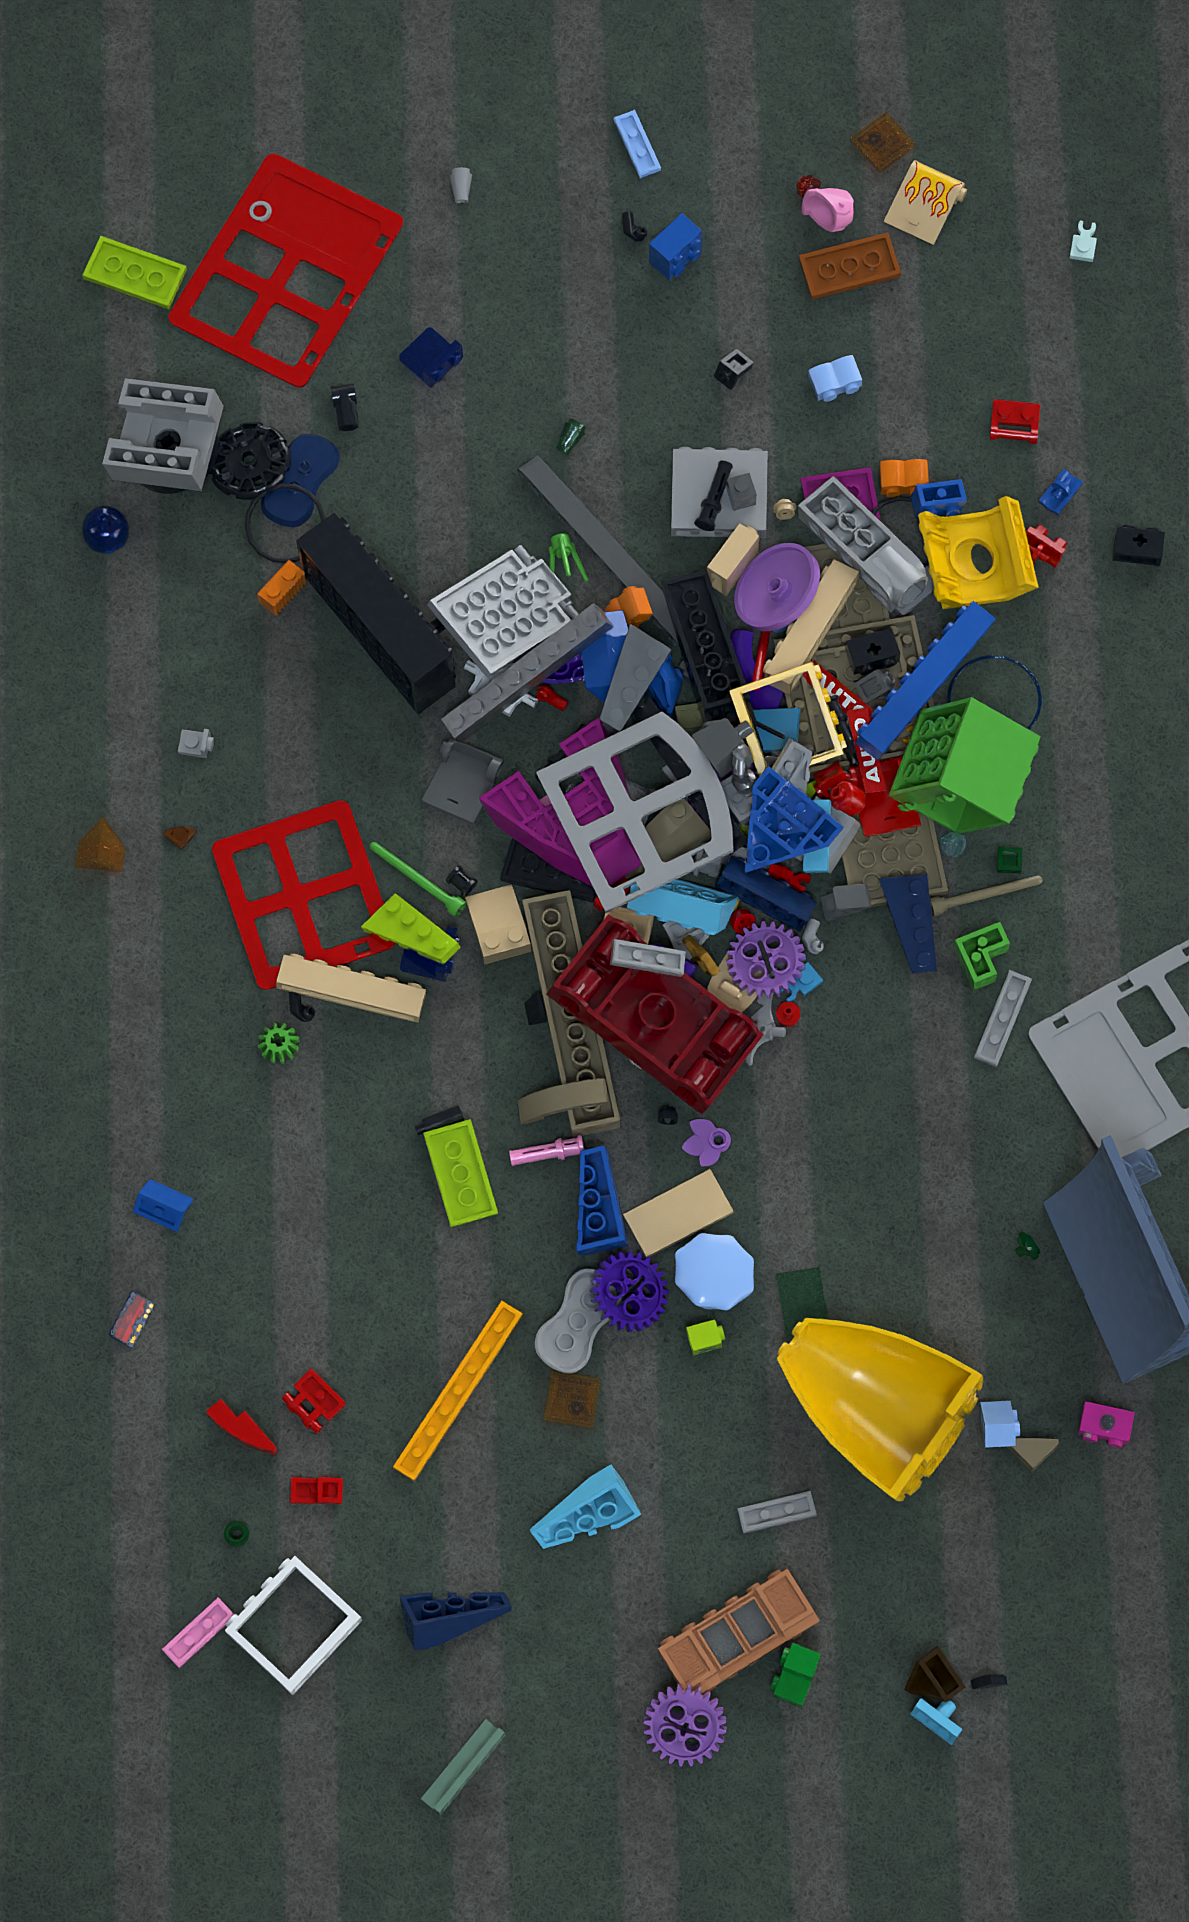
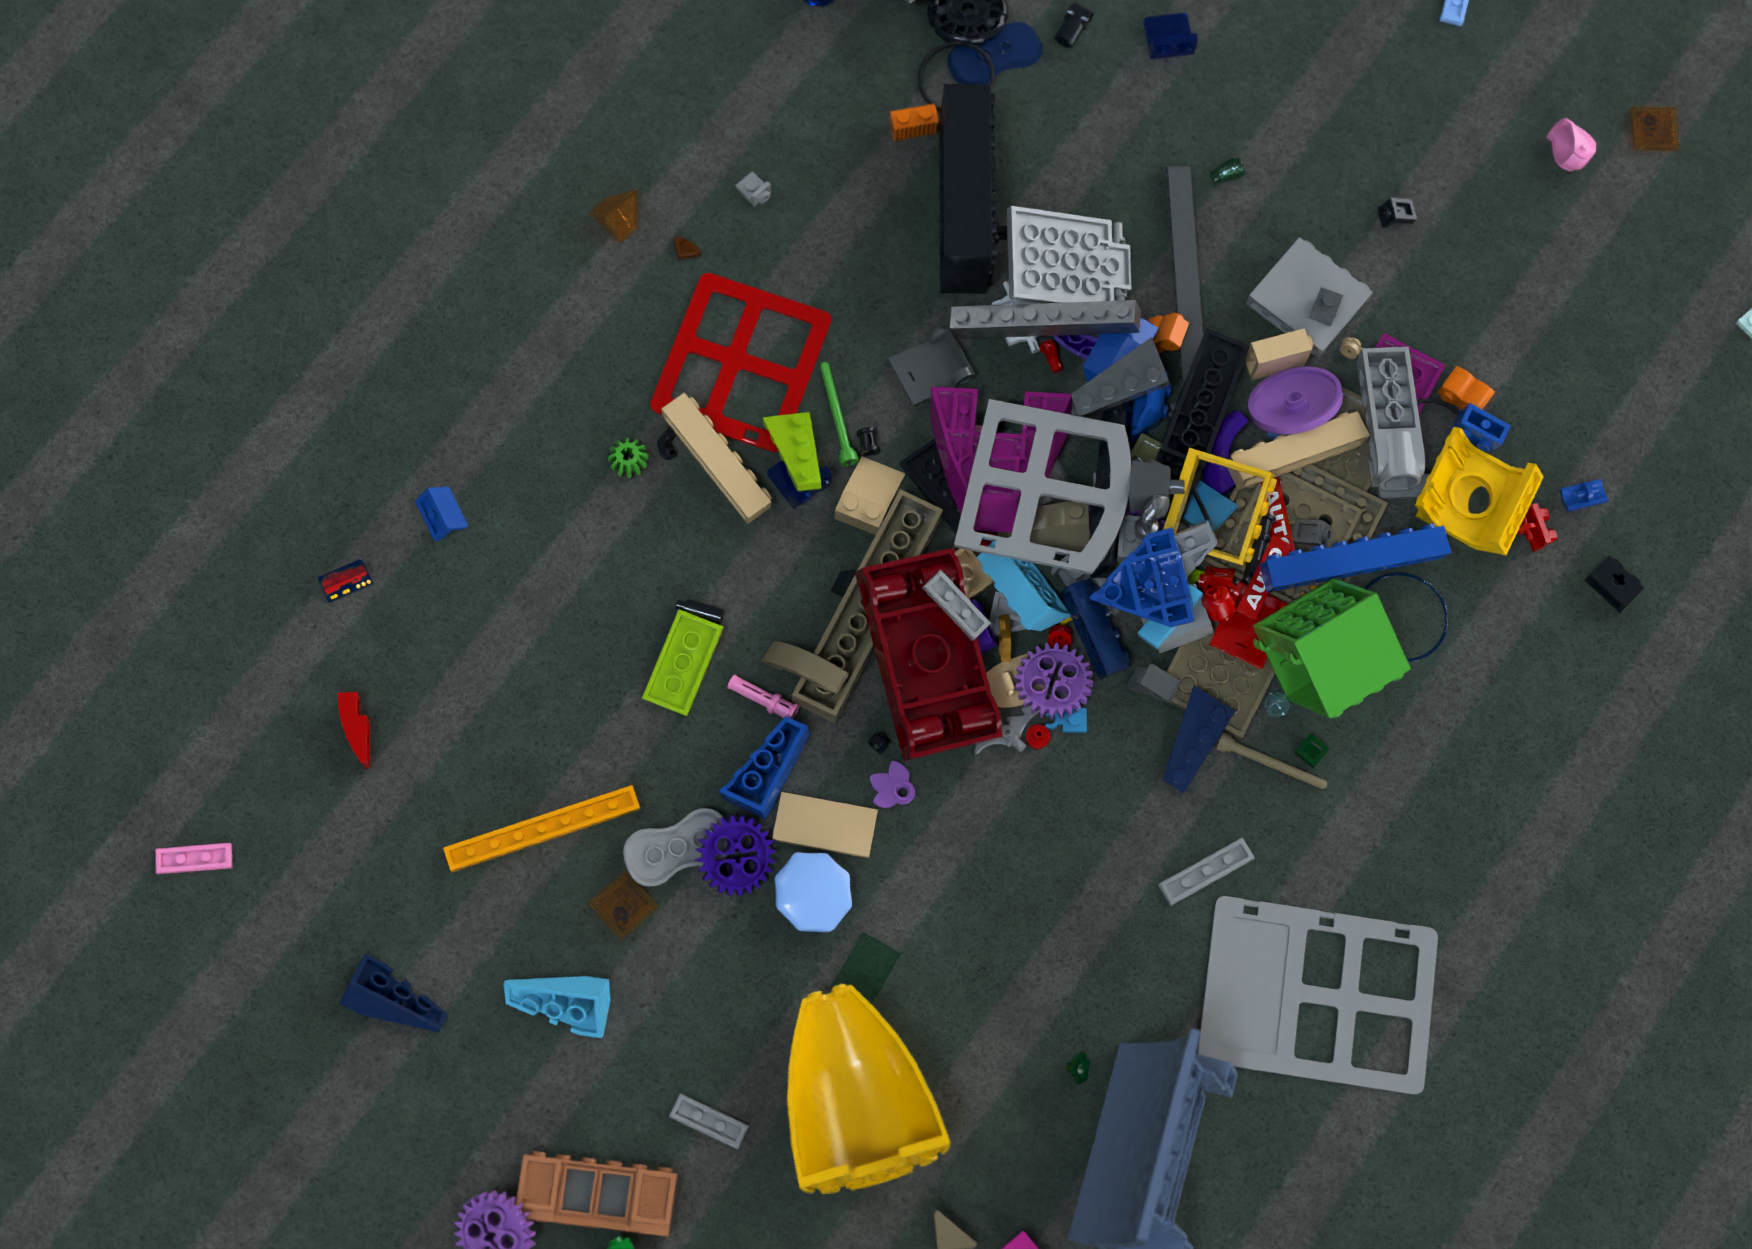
camera: 30 degrees right, 0 degrees up
(236, 1525) = (285, 797): dark green plate -> none
(316, 1490) = (371, 820): red slope -> none
(319, 1395) = (435, 750): red plate -> none
(321, 1653) = (271, 948): white window -> none
(463, 1767) = (301, 1126): sand green fence -> none
(561, 548) = (1151, 249): bright green plant -> none
(632, 230) = (1401, 54): black arm -> none
(676, 247) = (1425, 88): blue piece -> none
(705, 1337) = (765, 937): lime brick -> none
(711, 505) = (1294, 300): black pin -> none
(761, 656) = (1241, 443): red bar -> none
(781, 872) = (1122, 625): red plate -> none
(807, 183) = (1570, 115): clear red plate -> none
(810, 939) = (1103, 690): light grey arm -> none
(835, 378) = (1472, 277): light blue brick -> none
(849, 266) = (1552, 202): dark orange plate -> none
(881, 643) = (1343, 505): black brick -> none
(924, 202) = (1653, 195): tan door -> none
(976, 953) = (1228, 801): bright green brick -> none
(999, 1424) = (939, 1193): light blue brick -> none
(1015, 414) = (1594, 409): red plate -> none

